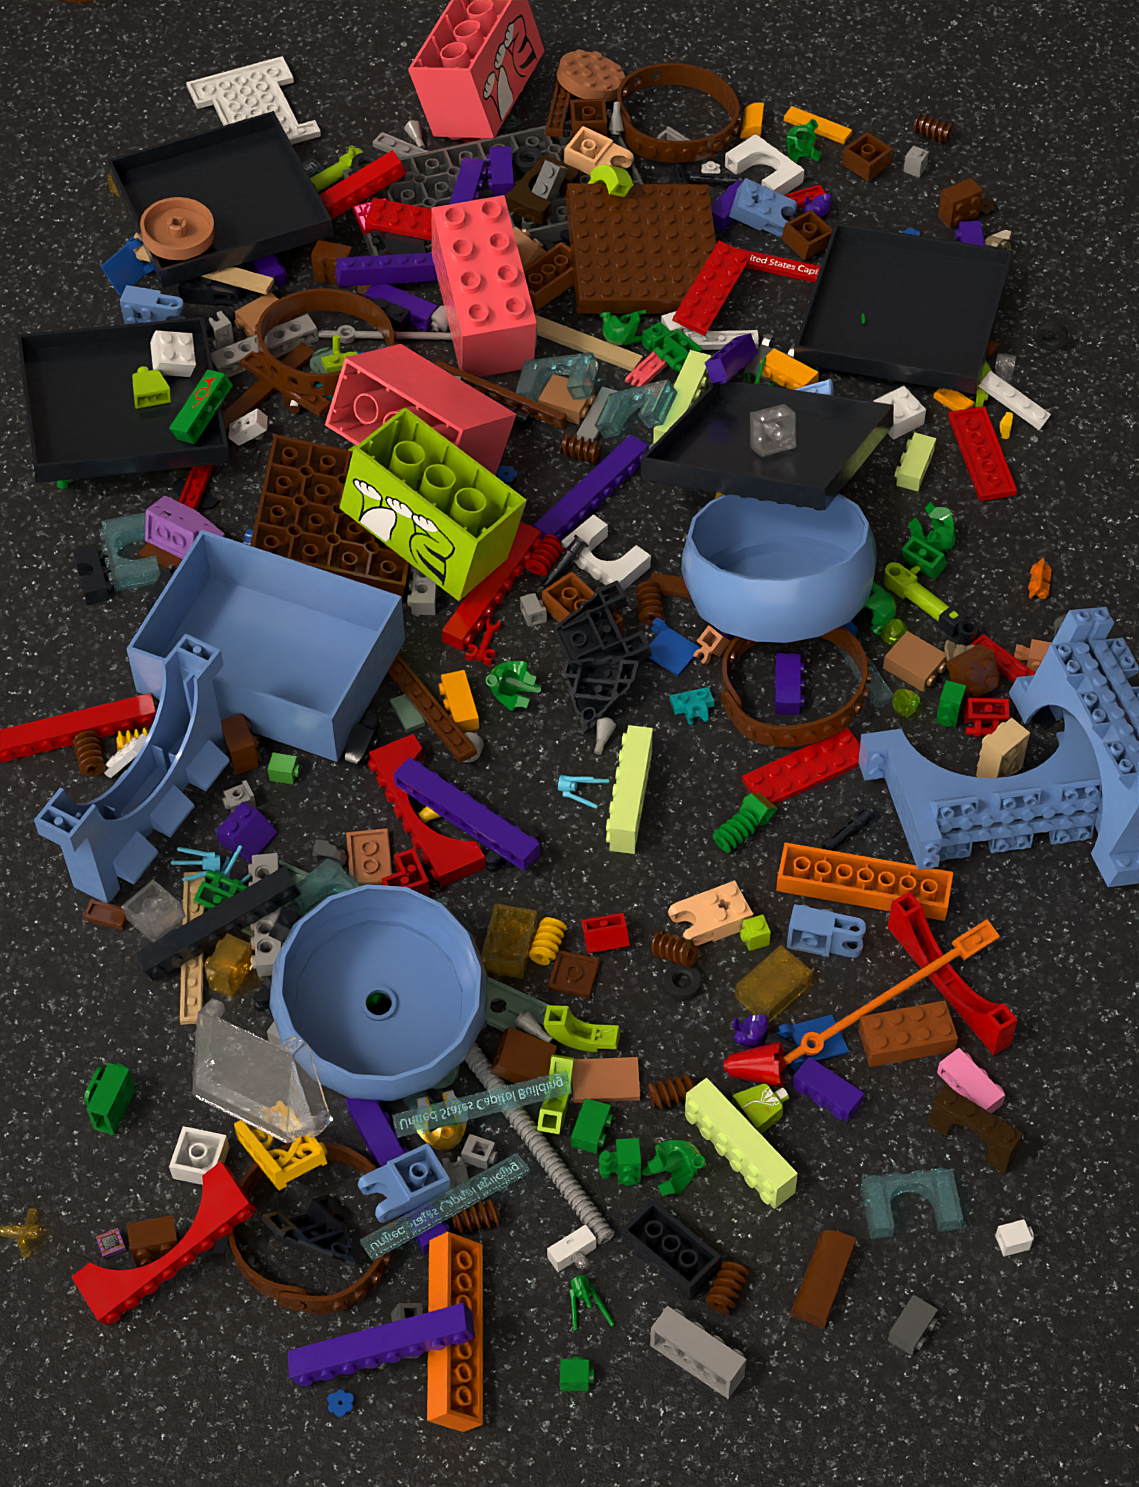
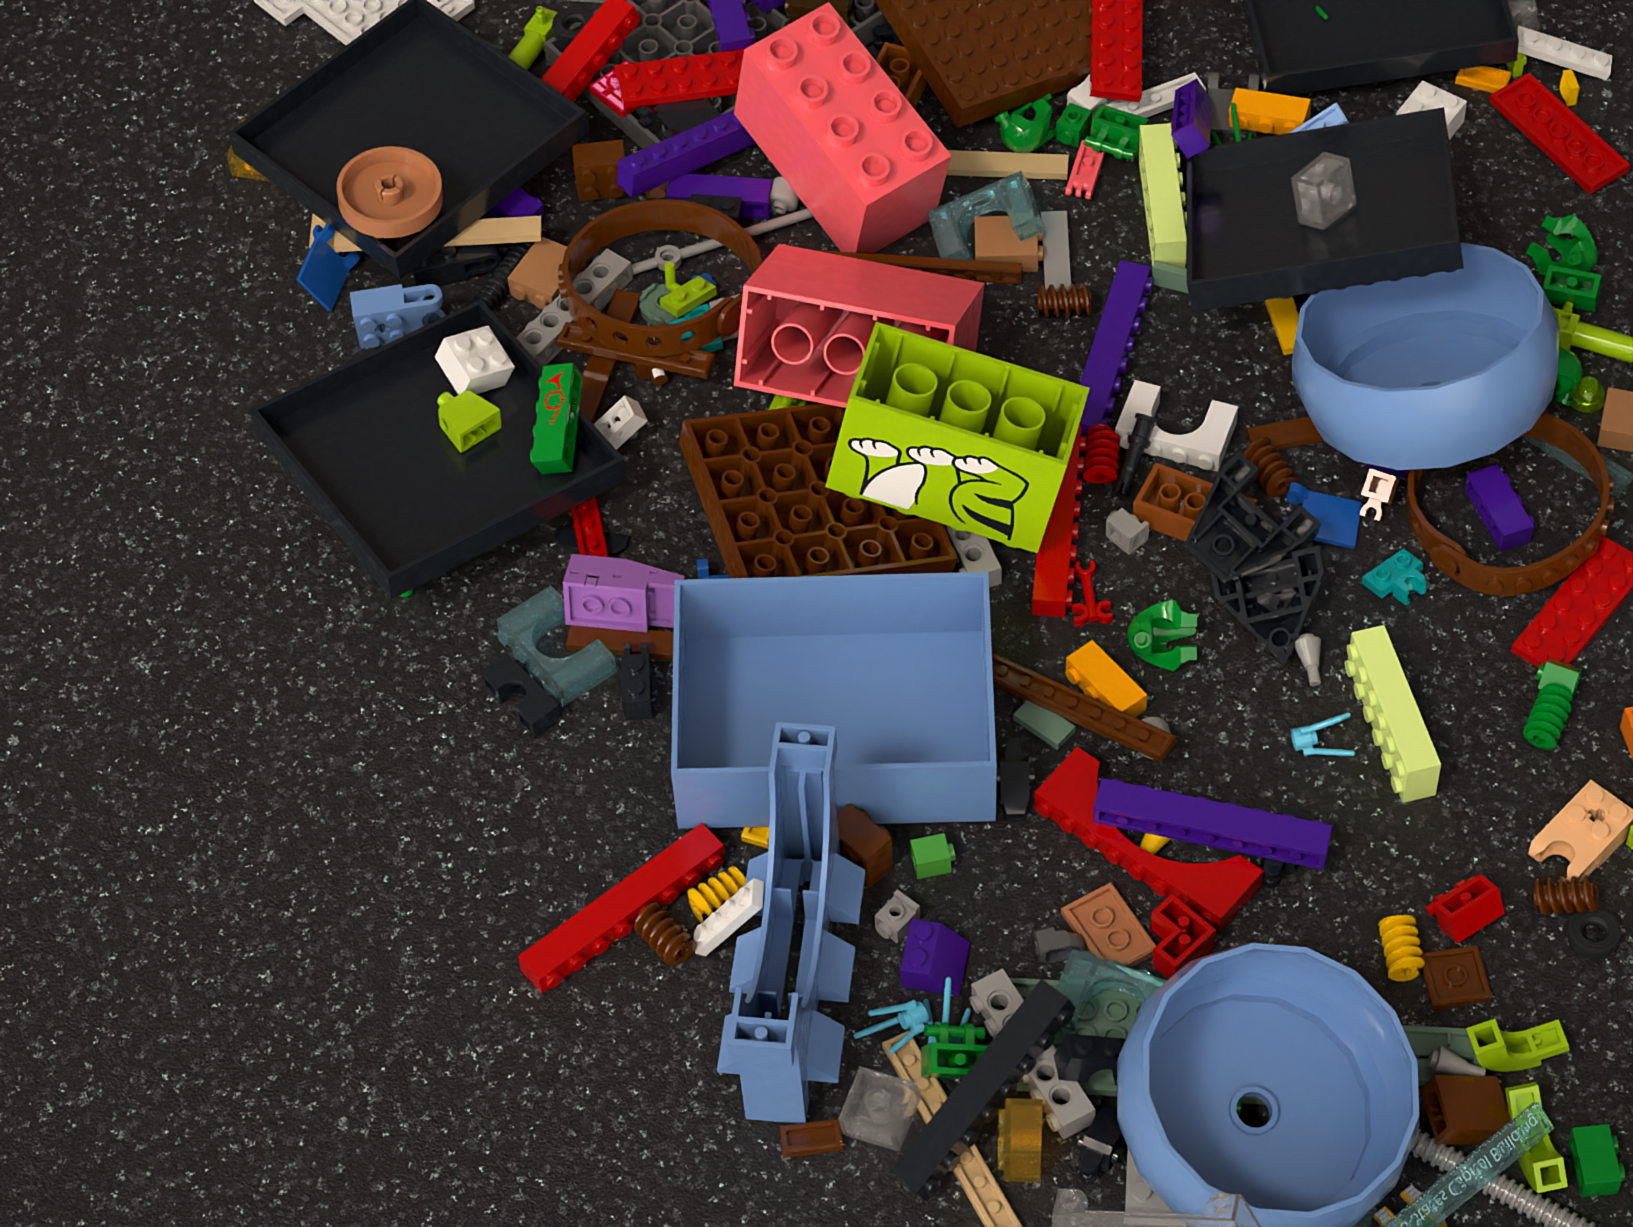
camera: 20 degrees left, 0 degrees up
(222, 331) = (511, 309): light grey hinge -> none
(509, 940) = (1359, 946): clear yellow brick -> none
(606, 1079) = (1580, 1093): nougat tile -> none
(653, 398) = (1083, 226): clear light blue arch -> none
(915, 461) = (1486, 171): yellowish green brick -> none

